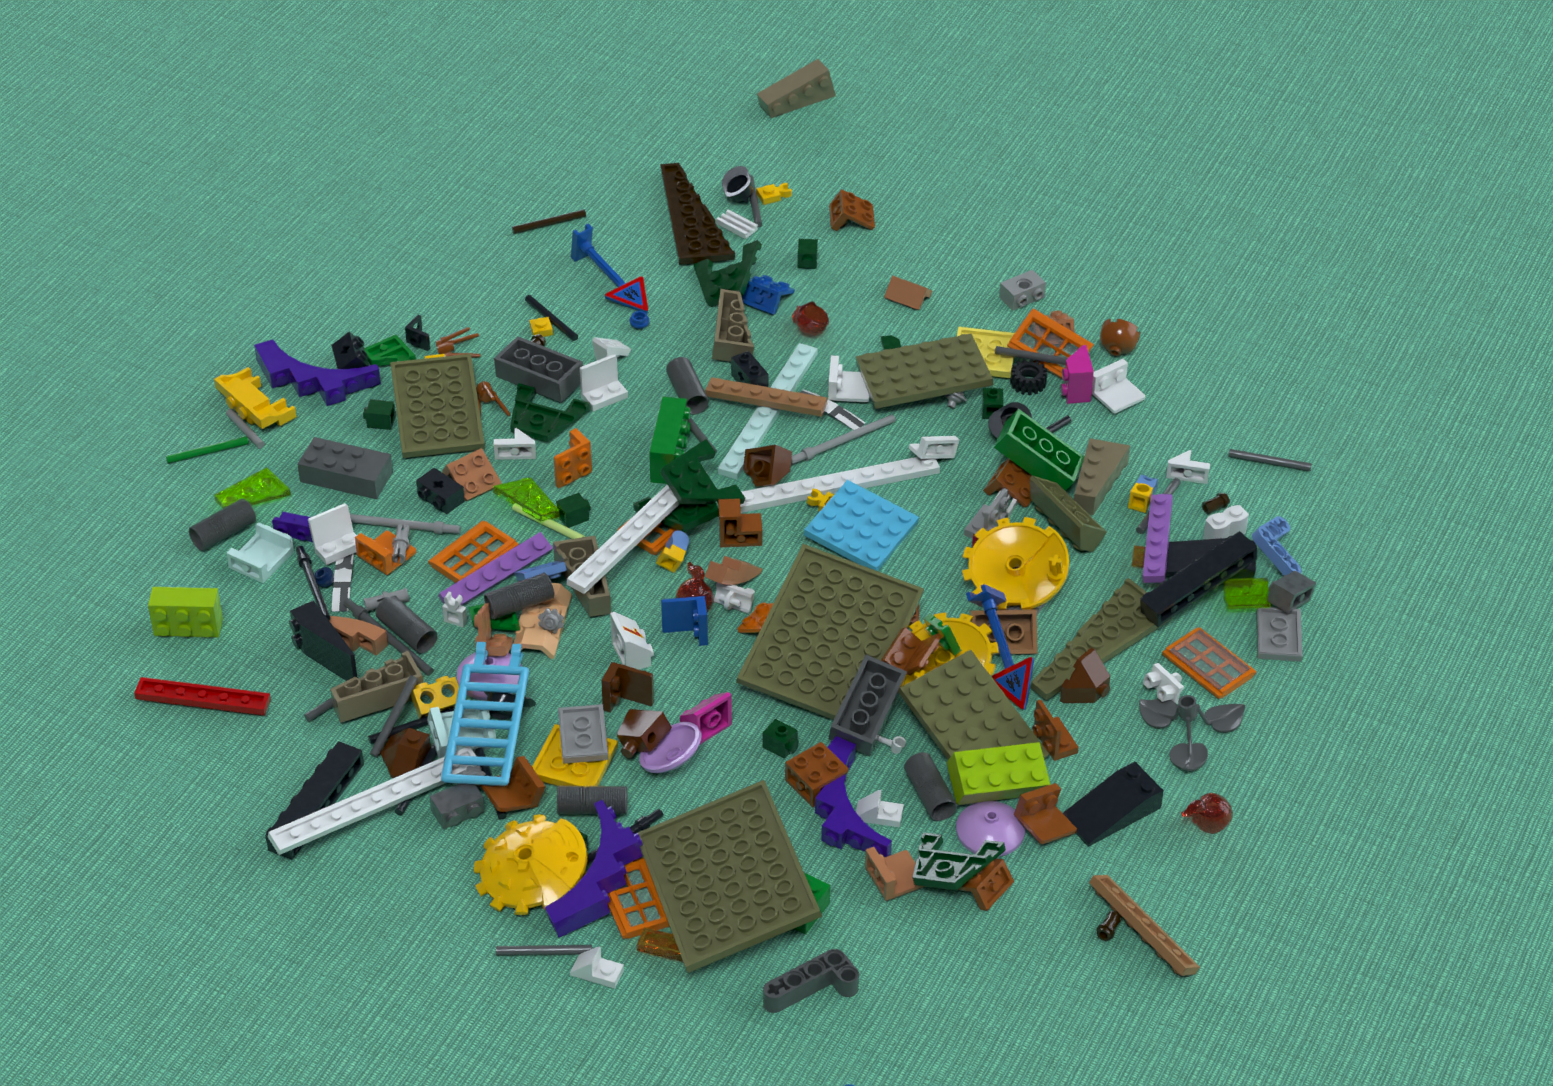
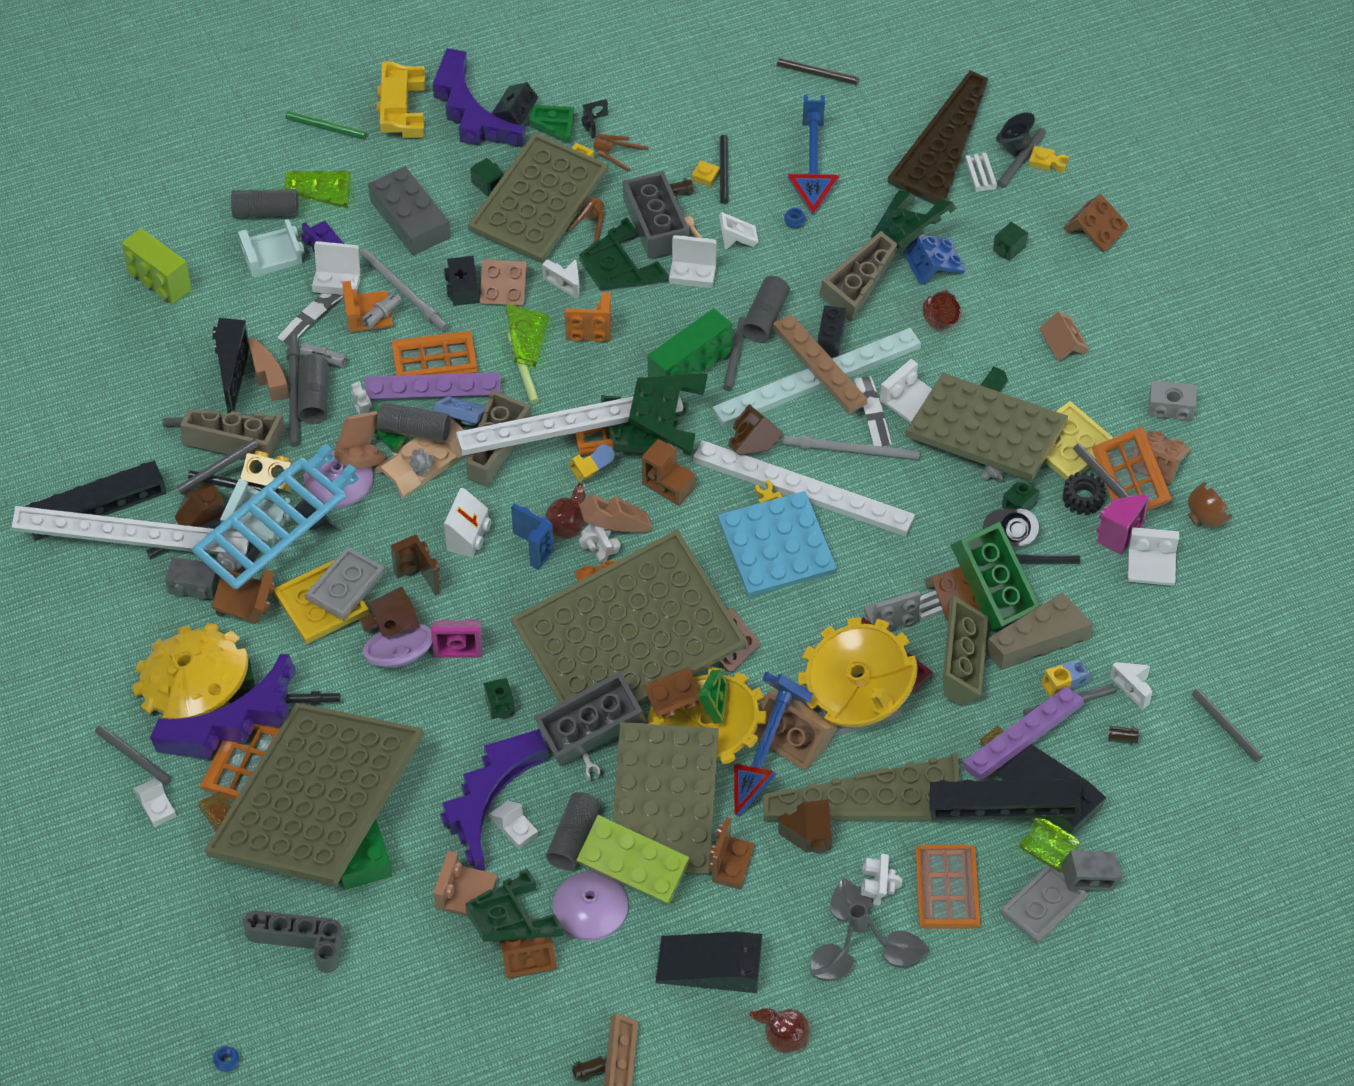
camera: 40 degrees right, 10 degrees up
(202, 696) = (105, 350): red plate -> none
(245, 428) = (373, 126): light grey bar -> none
(305, 562) = (295, 279): black bar -> none
(324, 577) = (296, 302): dark blue plate -> none
(572, 799) = (304, 654): dark grey piece -> none
(573, 510) = (550, 369): dark green brick -> none
(797, 90) = (1174, 65): dark tan wedge -> none
(813, 770) = (492, 747): dark orange bracket -> none
(935, 447) = (916, 510): white panel -> none
(1041, 816) = (638, 927): dark orange bracket -> none
(1226, 523) = (1104, 763): white brick -> none
(1267, 540) = (1126, 805): medium blue beam -> none

